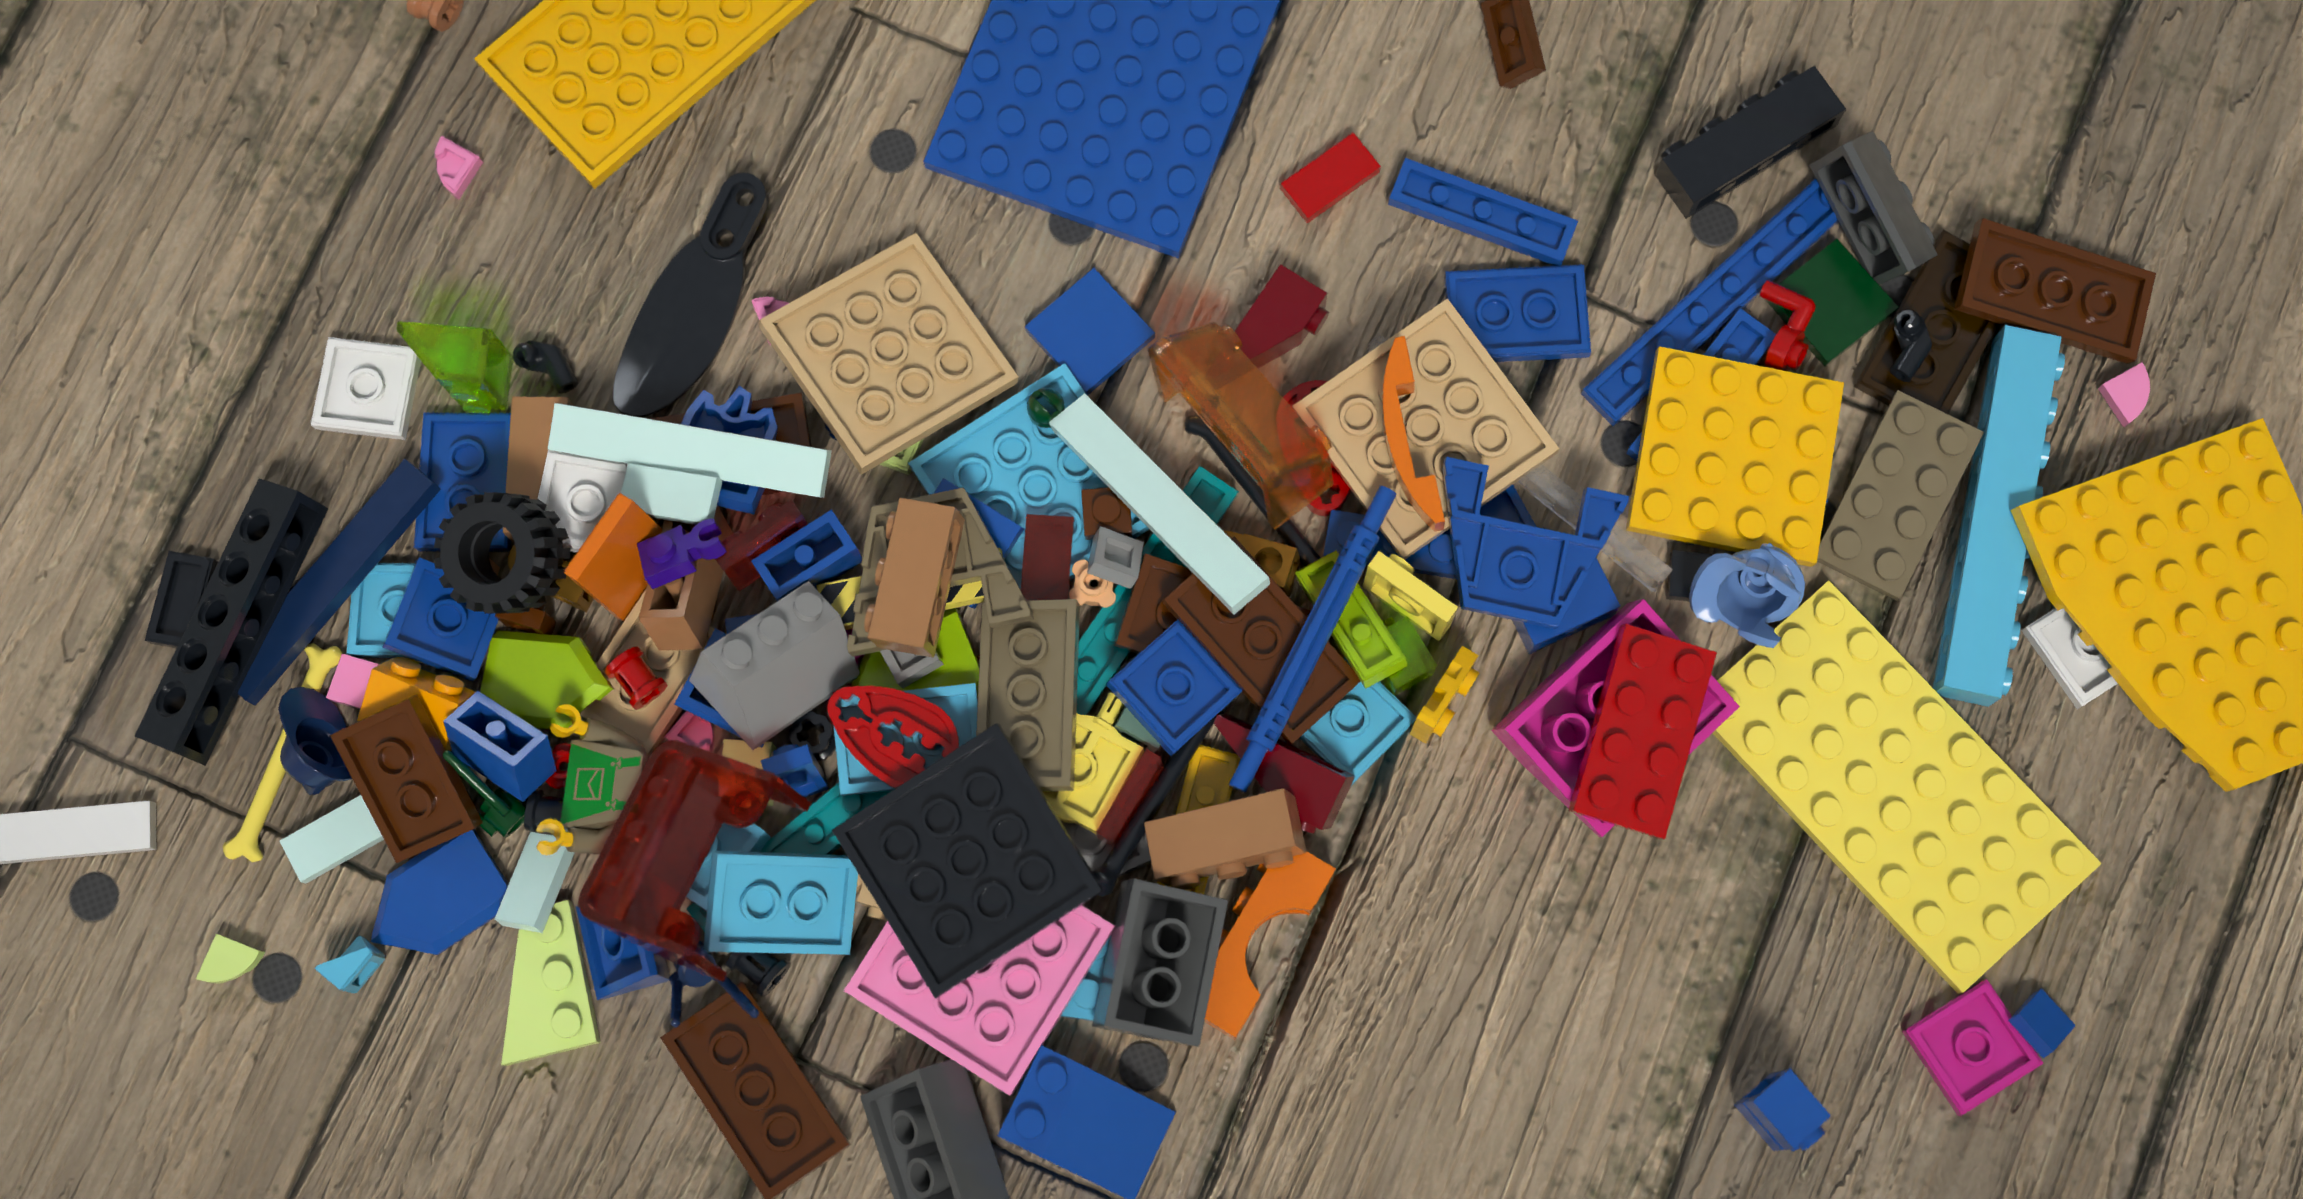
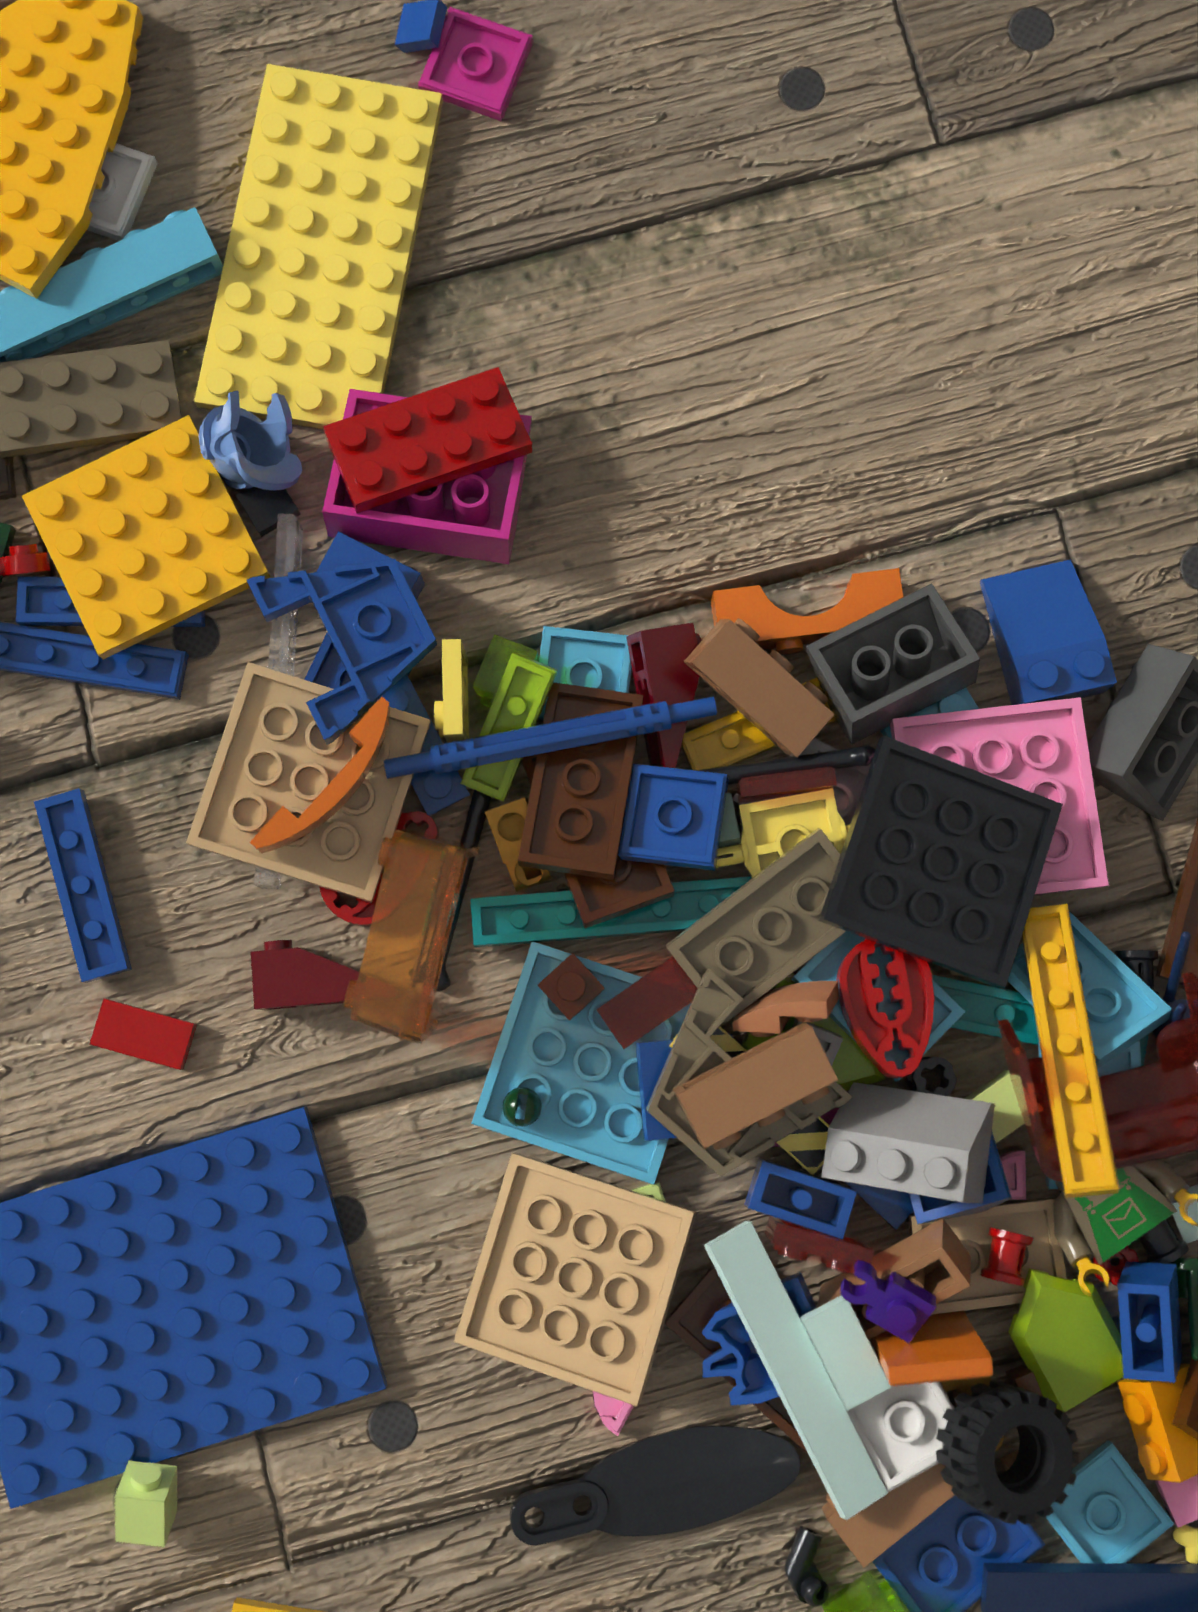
camera: 130 degrees left, 5 degrees up
(437, 628) = (1107, 1466): blue plate -> none
(746, 835) = (1068, 1054): none -> yellow tile
(797, 769) = (975, 1065): blue plate -> none
(955, 663) = (772, 1011): none -> nougat slope
(1085, 594) = (622, 949): light nougat plate -> none
(1090, 331) = (425, 1128): blue tile -> none
(1115, 557) = (605, 947): light grey plate -> none
(1160, 504) = (535, 944): light aqua tile -> none
(1435, 714) = (511, 614): yellow wing -> none
(1524, 310) = (143, 793): blue tile -> none
(1784, 1112) = (633, 145): blue piece -> none

